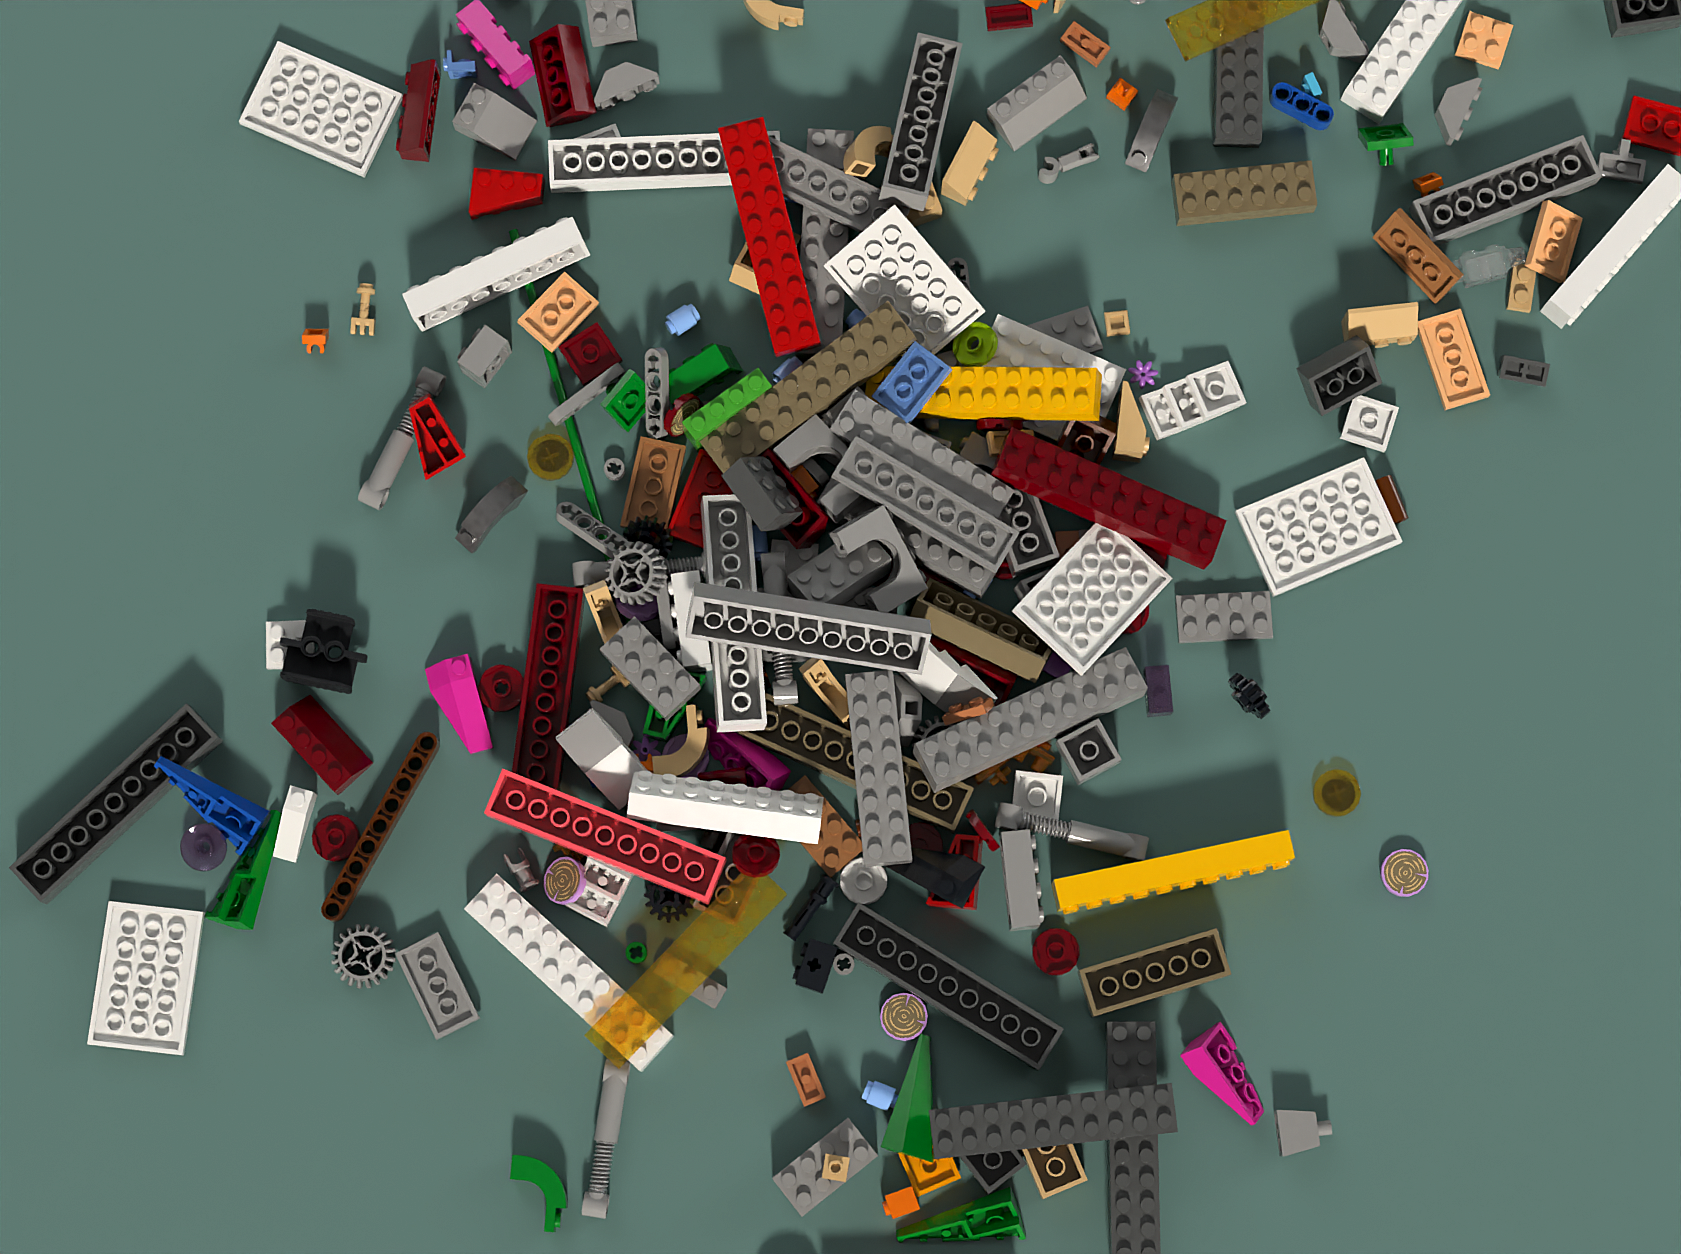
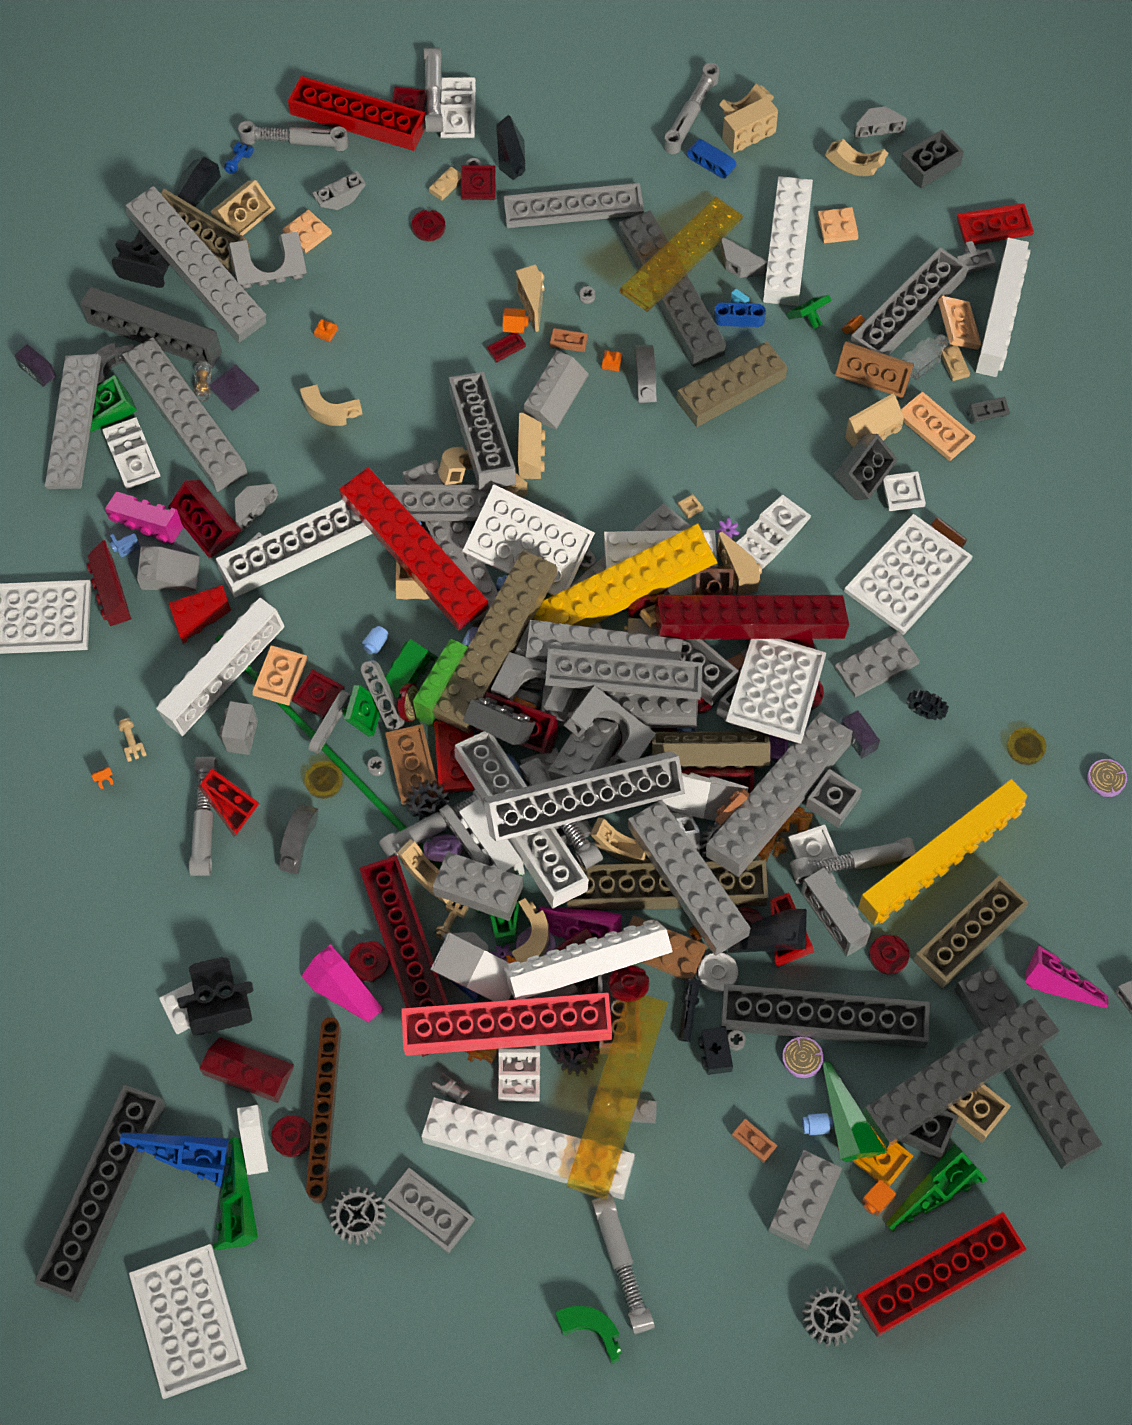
camera: 25 degrees left, 15 degrees down
(193, 850) = (178, 1195): clear purple dish -> none
(564, 880) = (489, 1079): tile -> none
(589, 534) = (362, 813): light grey beam -> none
(622, 583) = (428, 839): light grey gear -> none
(637, 960) = (577, 1113): green bush -> none
(835, 1167) = (816, 1189): tan brick -> none
(912, 382) = (569, 597): medium blue plate -> none
(982, 830) = (785, 886): dark red tile -> none
(985, 350) = (597, 549): lime tile -> none
(1066, 163) = (590, 424): light grey piece -> none
(1455, 108) = (844, 272): light grey slope -> none

